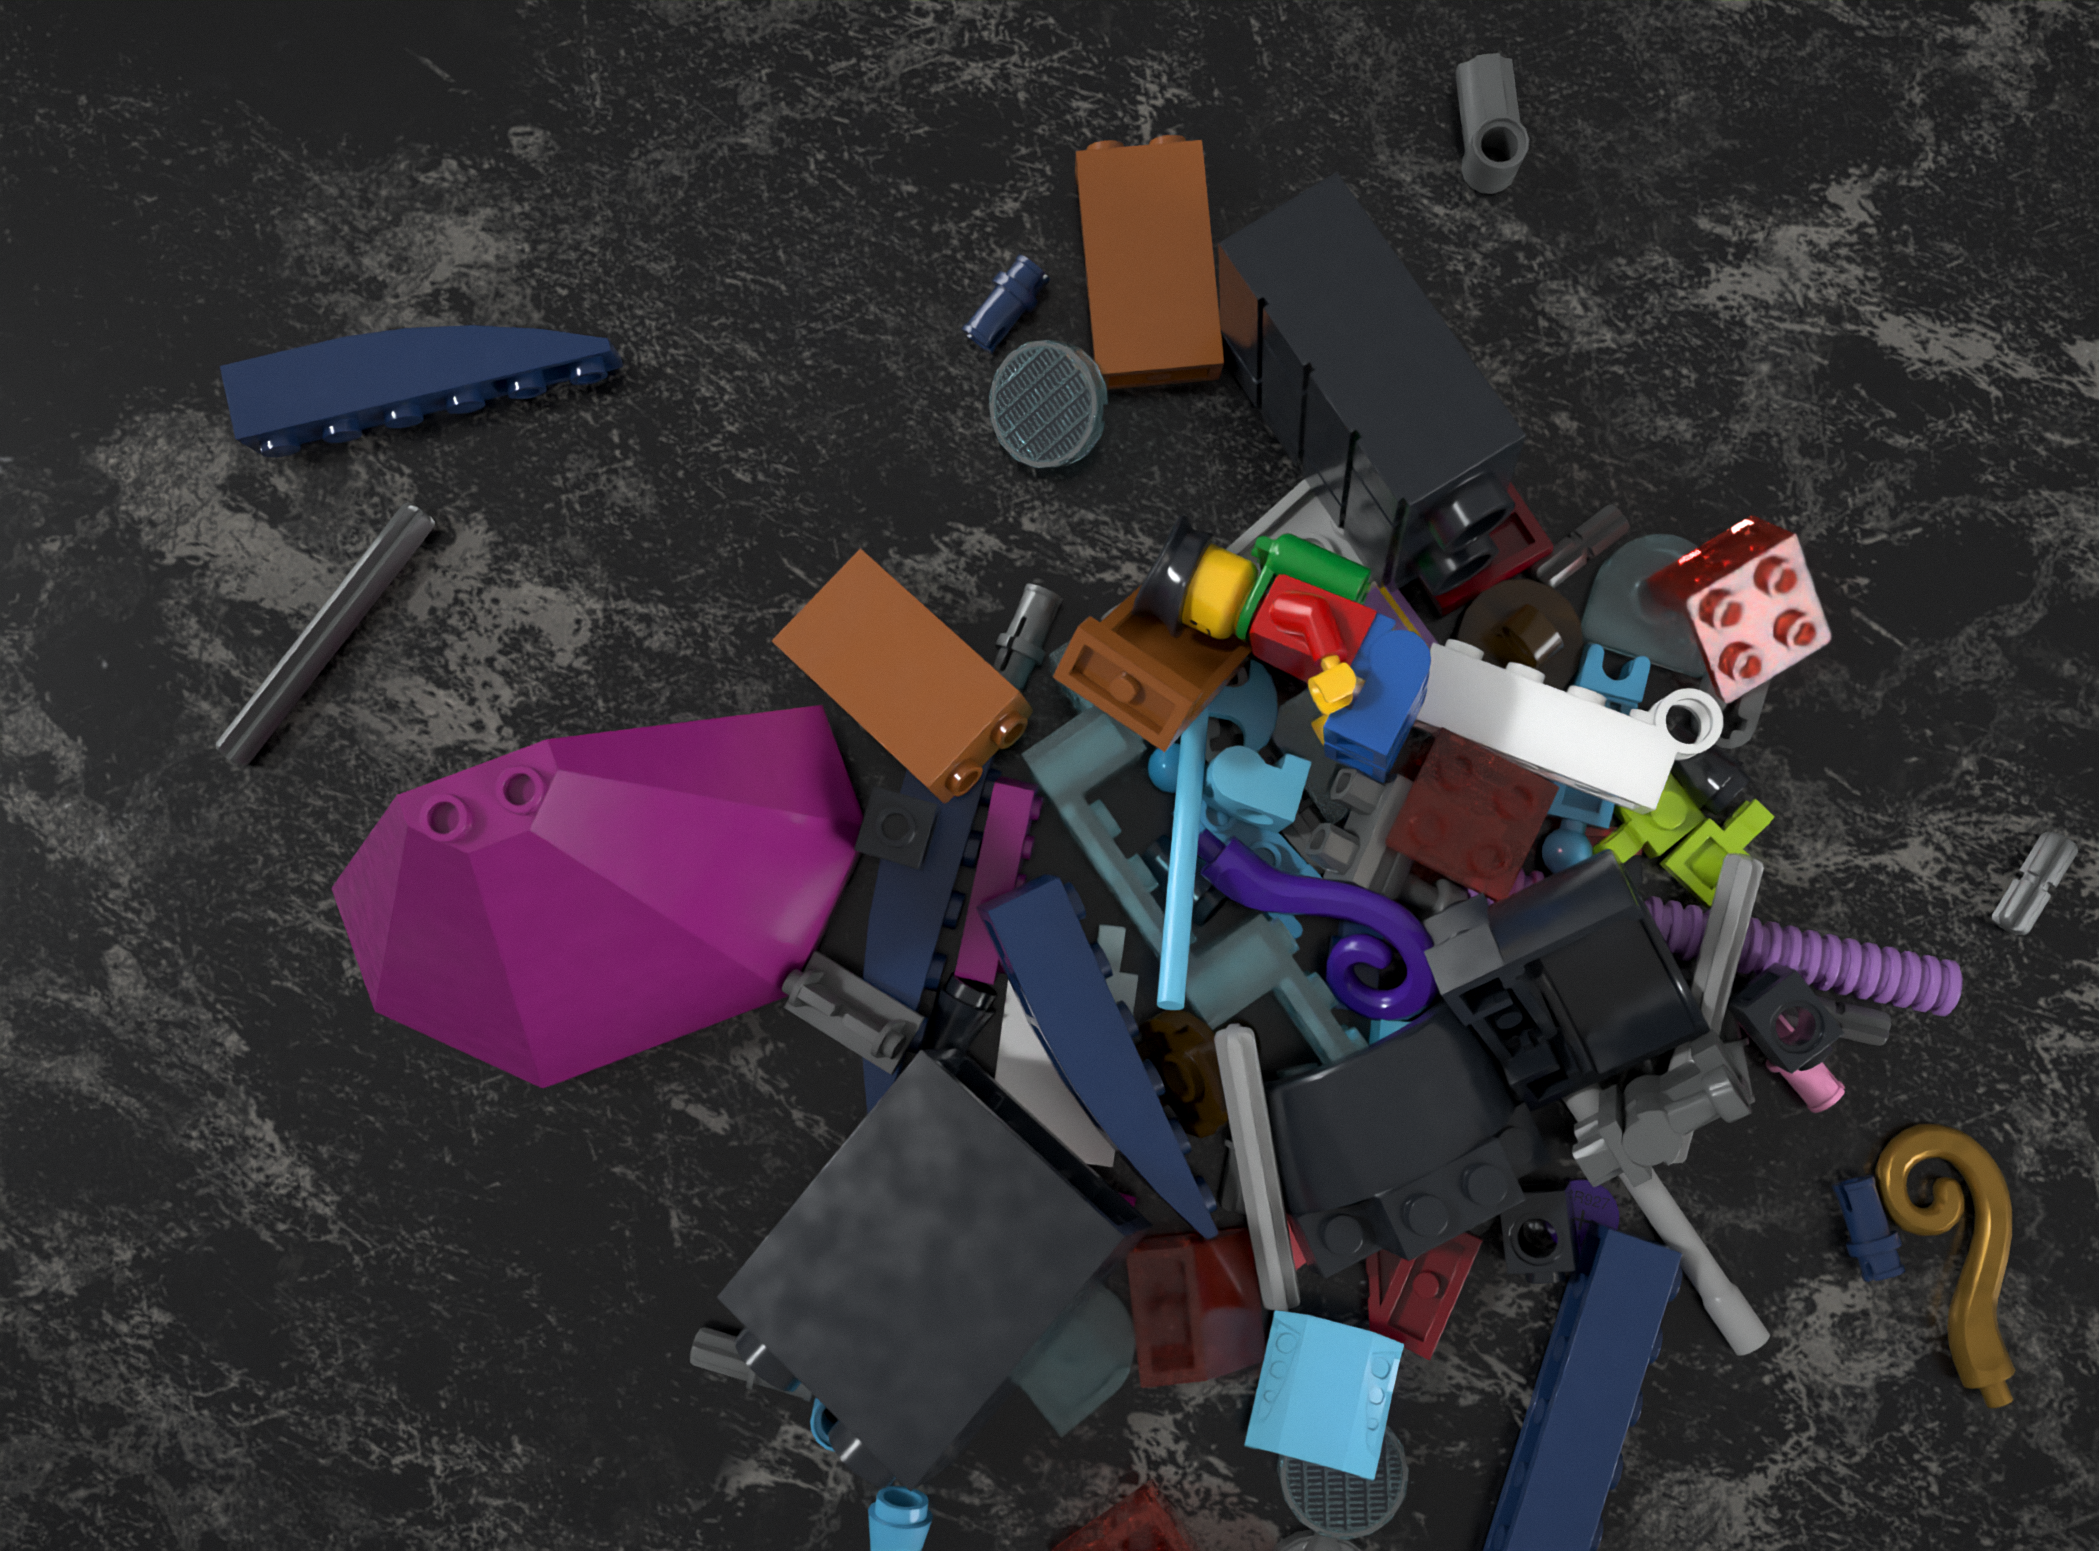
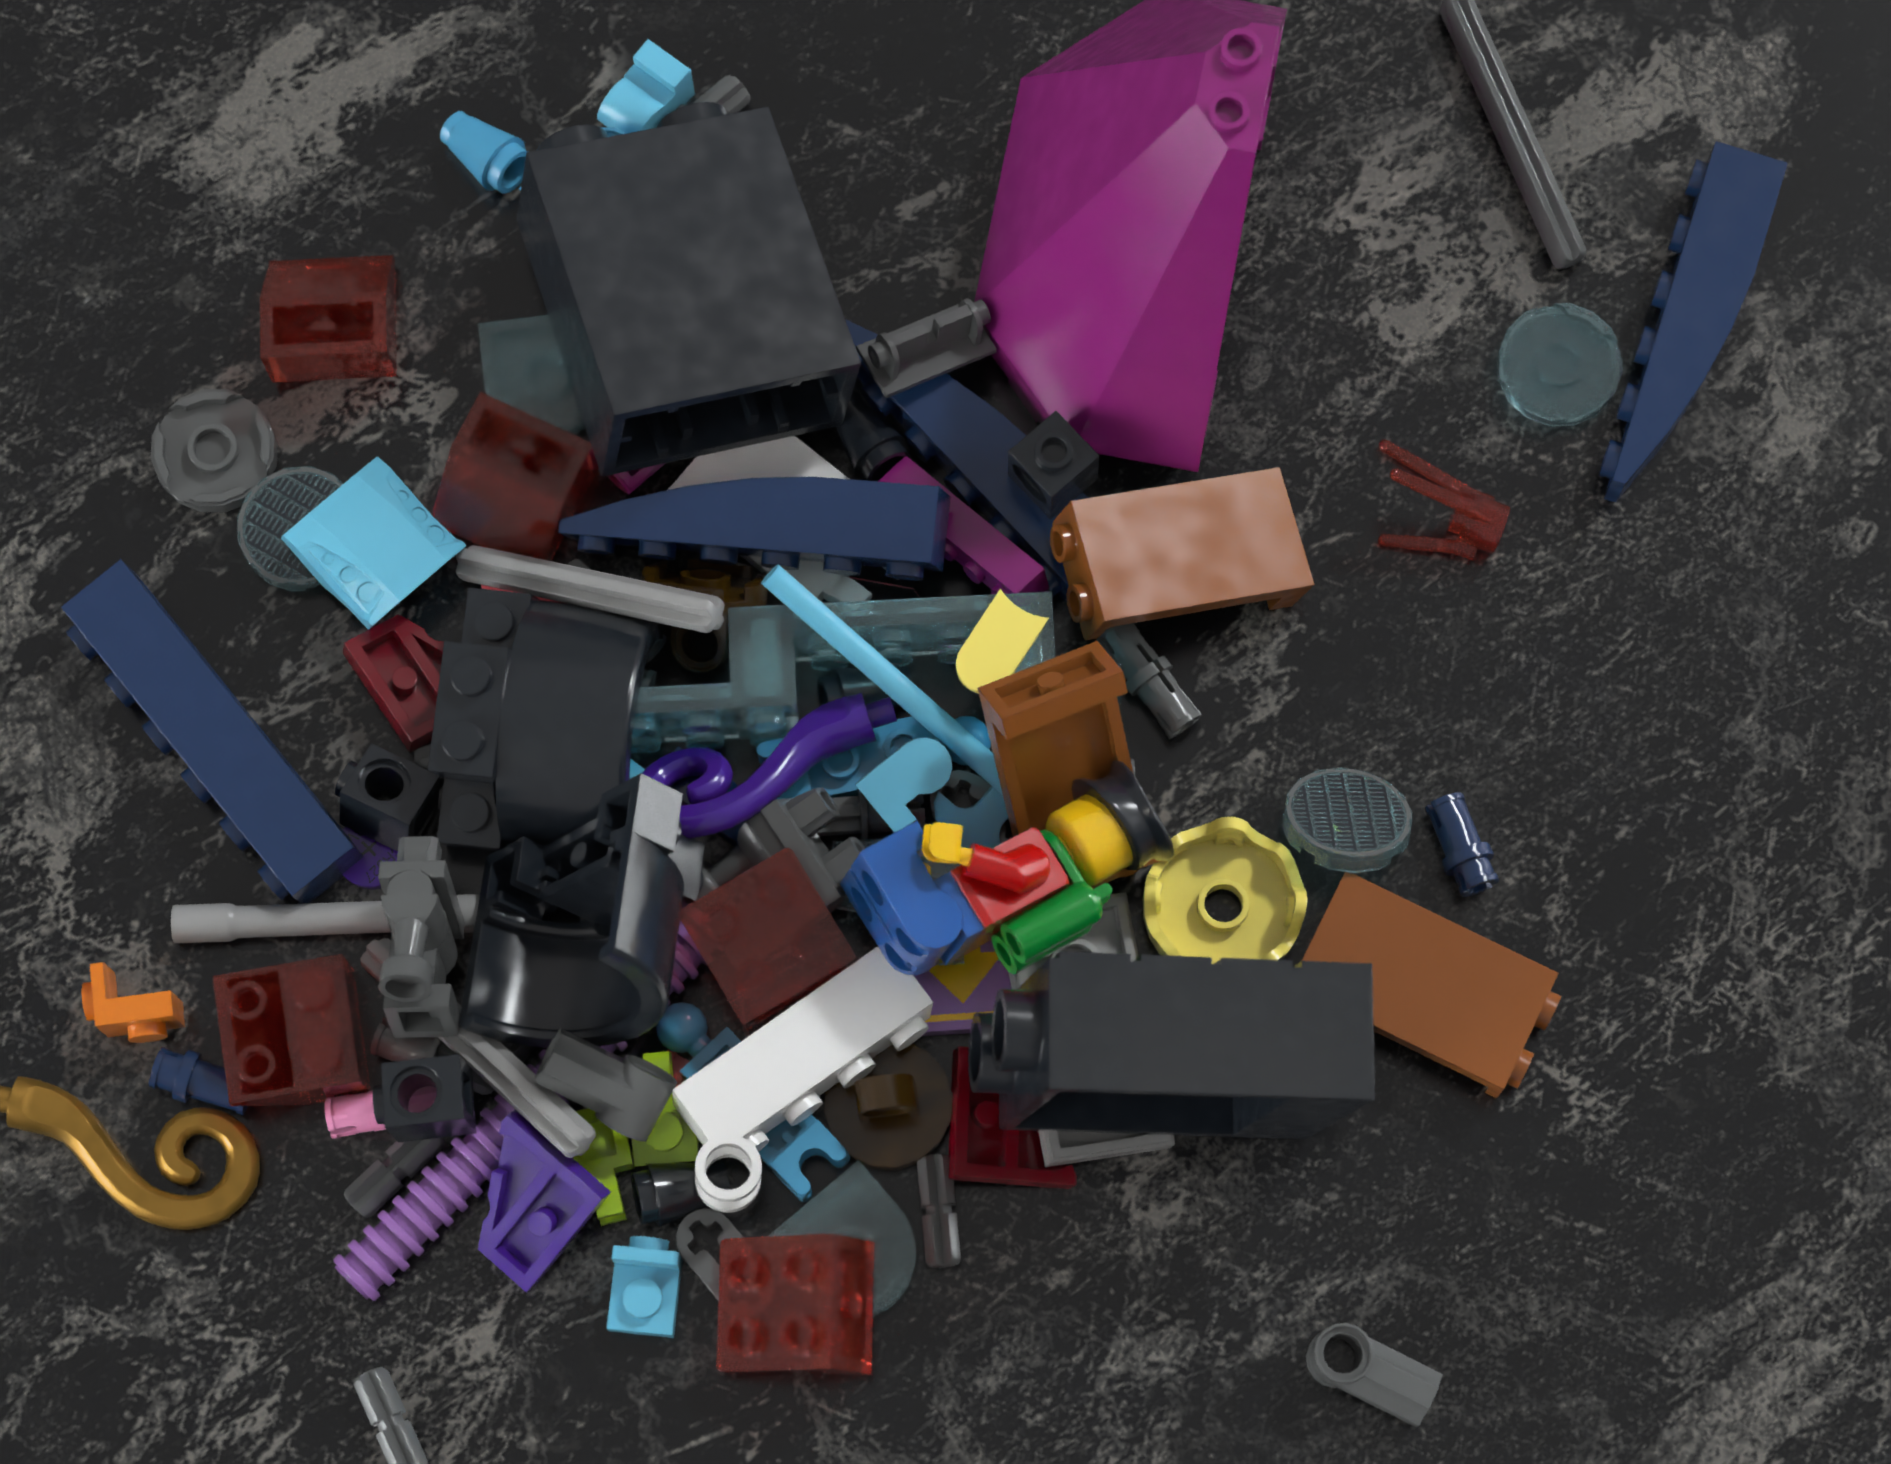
camera: 125 degrees right, 10 degrees down
(523, 469) = (1559, 364): none -> clear light blue tile
(712, 458) = (1475, 514): none -> clear red plant
(758, 1424) = (647, 92): none -> medium azure leg
(1101, 770) = (997, 643): none -> light yellow piece
(1188, 422) = (1231, 858): none -> light yellow plate
(1673, 858) = (622, 1092): none -> dark grey piece
(1790, 1175) = (291, 1033): none -> clear red slope
(1796, 746) = (645, 1288): none -> medium azure bracket
(1802, 874) = (535, 1203): none -> dark purple wing
(1854, 1318) = (139, 1016): none -> orange bracket

